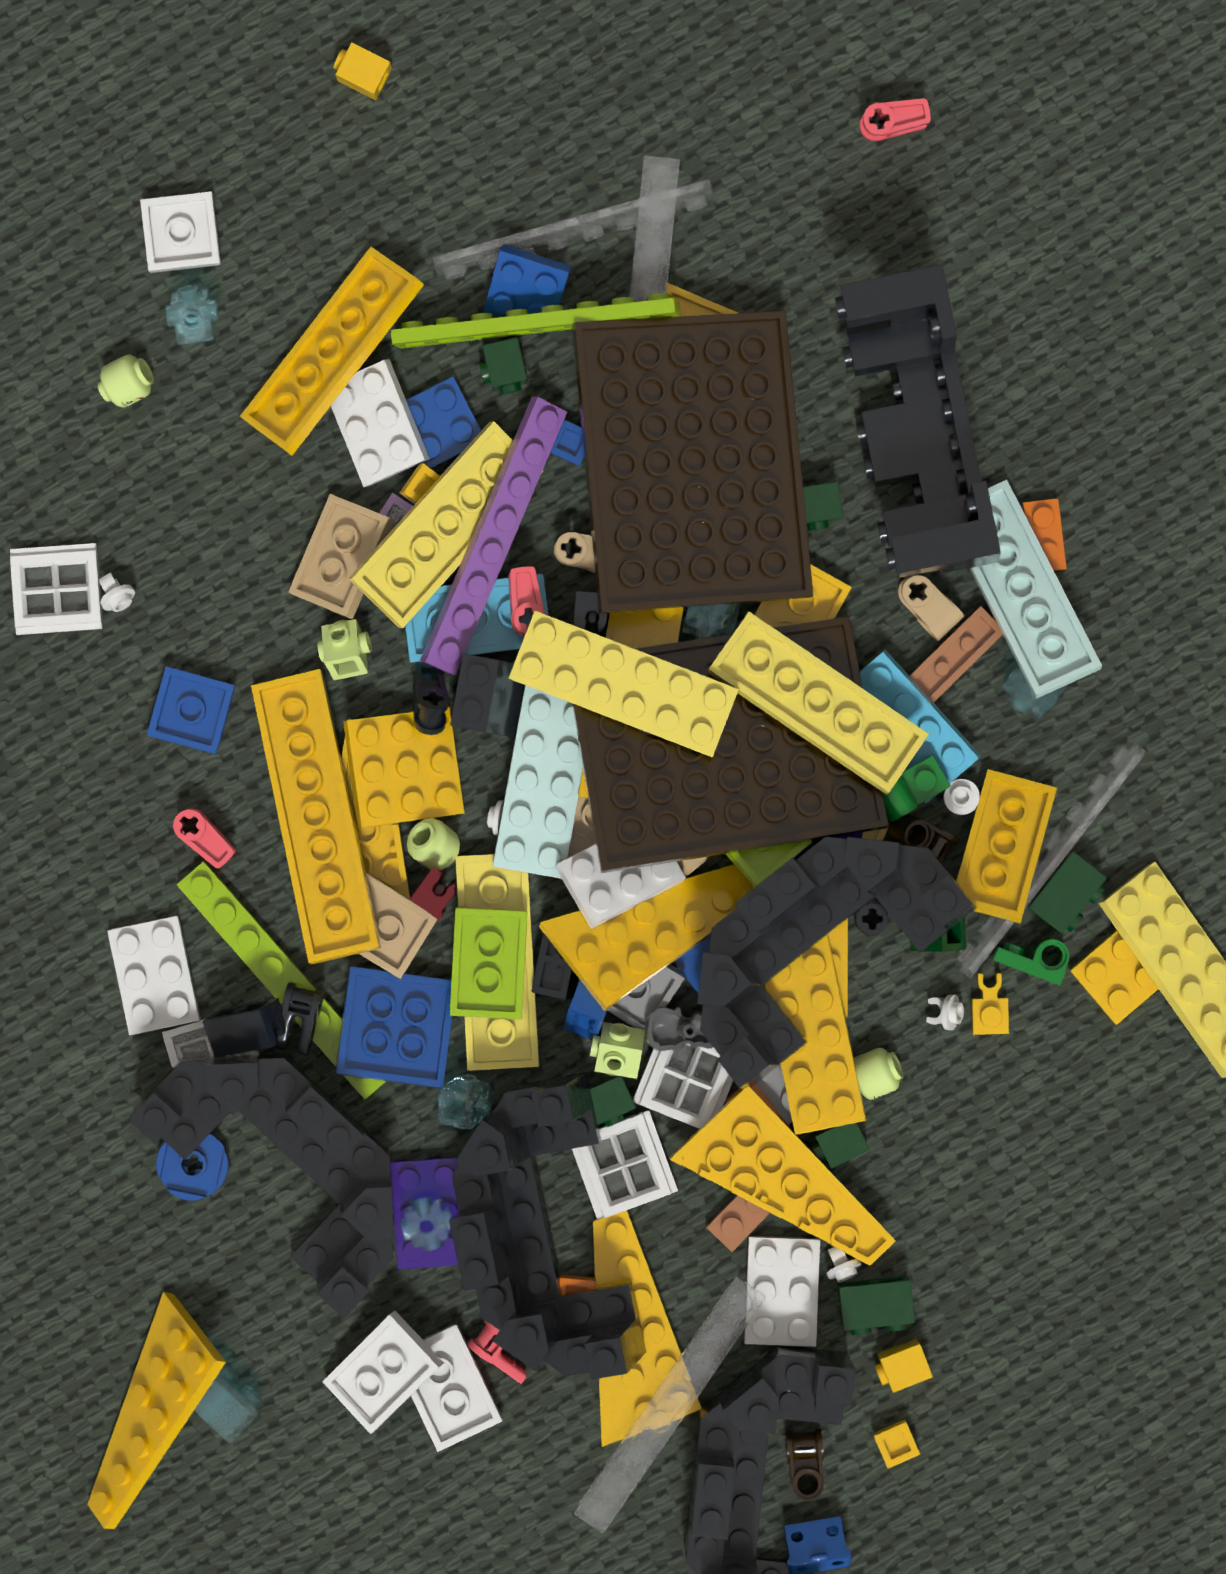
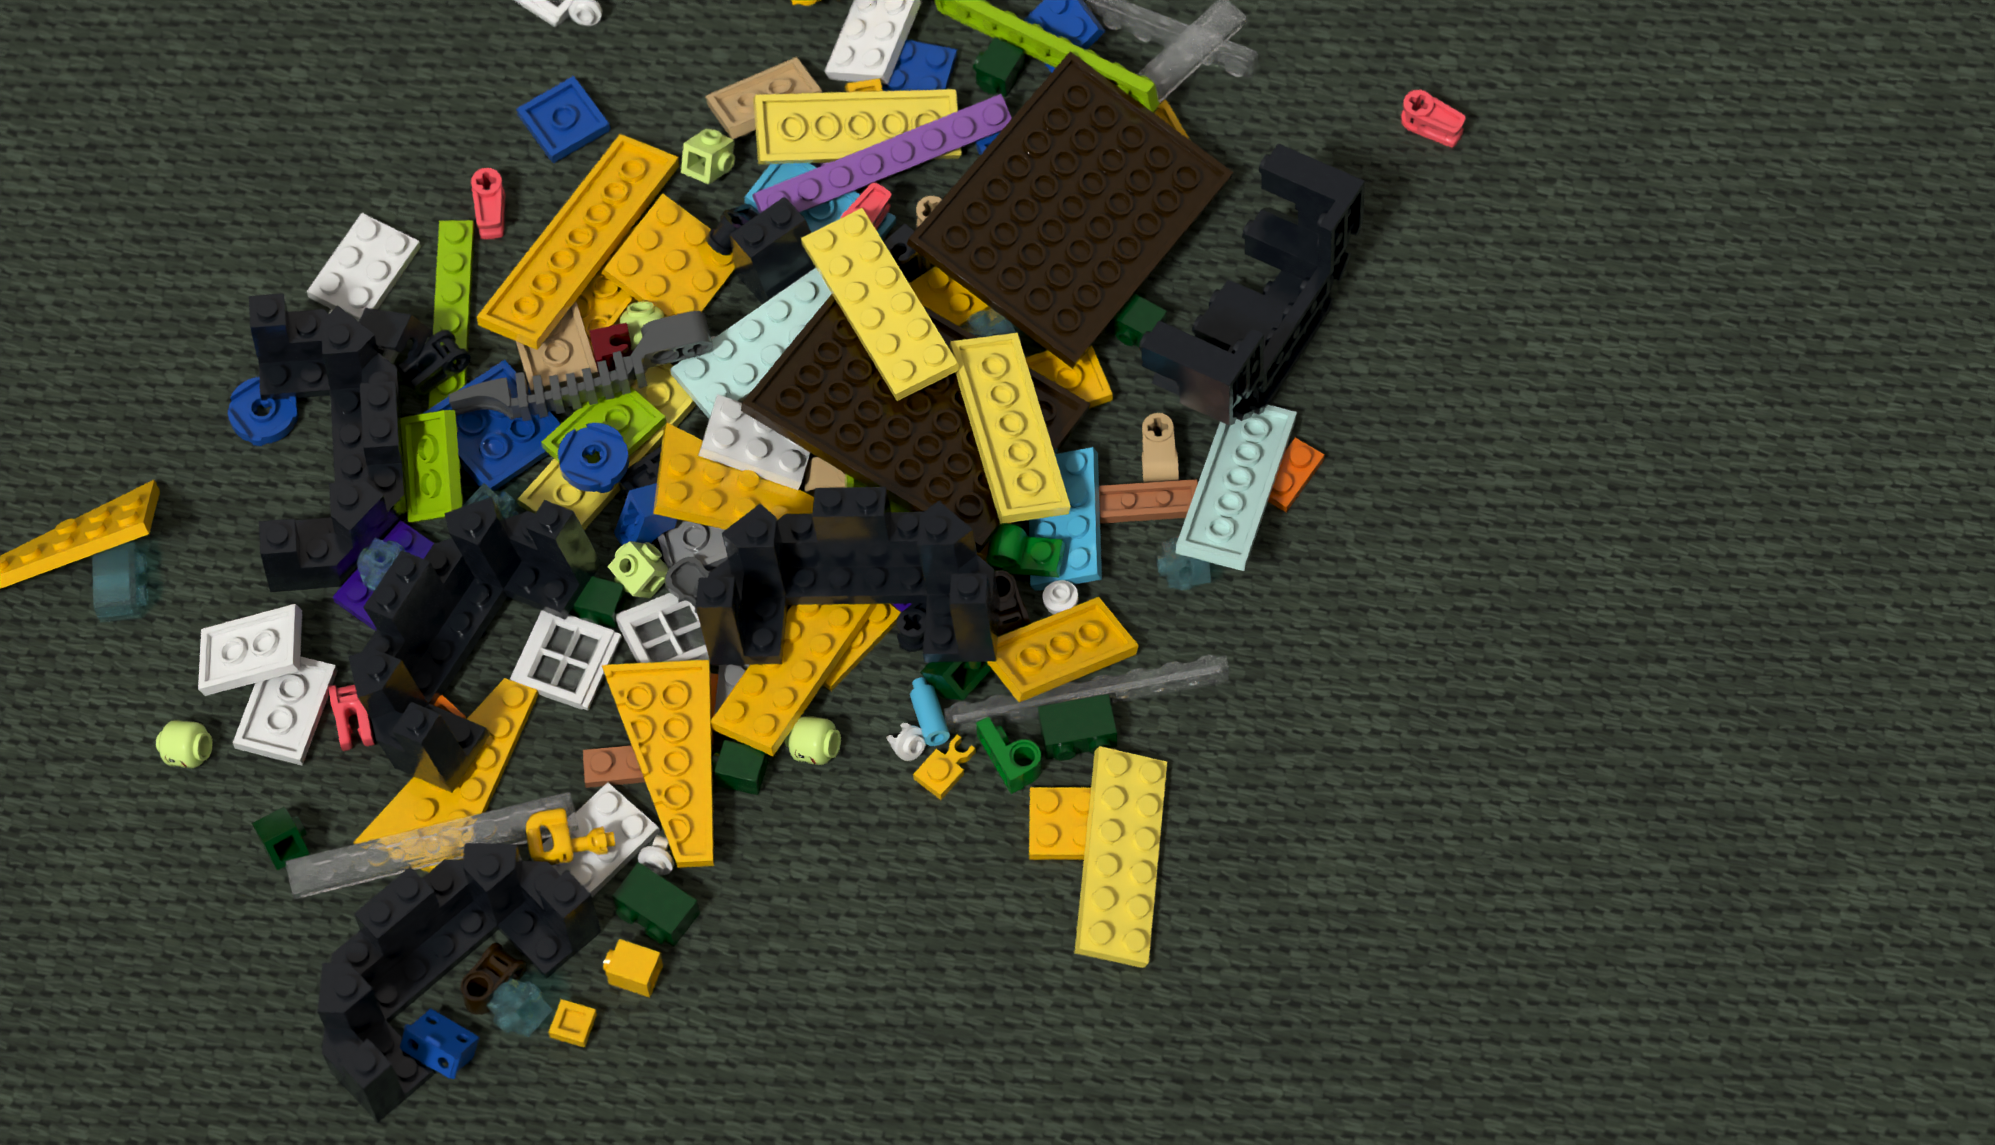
camera: 45 degrees right, 25 degrees down
(385, 1111) = (431, 465): none -> lime plate
(401, 1483) = (184, 744): none -> yellowish green head
(473, 860) = (662, 343): none -> dark grey piece
(527, 1008) = (599, 475): none -> blue plate
(549, 1494) = (281, 837): none -> dark green brick
(772, 1326) = (563, 845): none -> yellow piece
(851, 1471) = (518, 1007): none -> clear light blue brick
(942, 975) = (929, 713): none -> medium azure cylinder

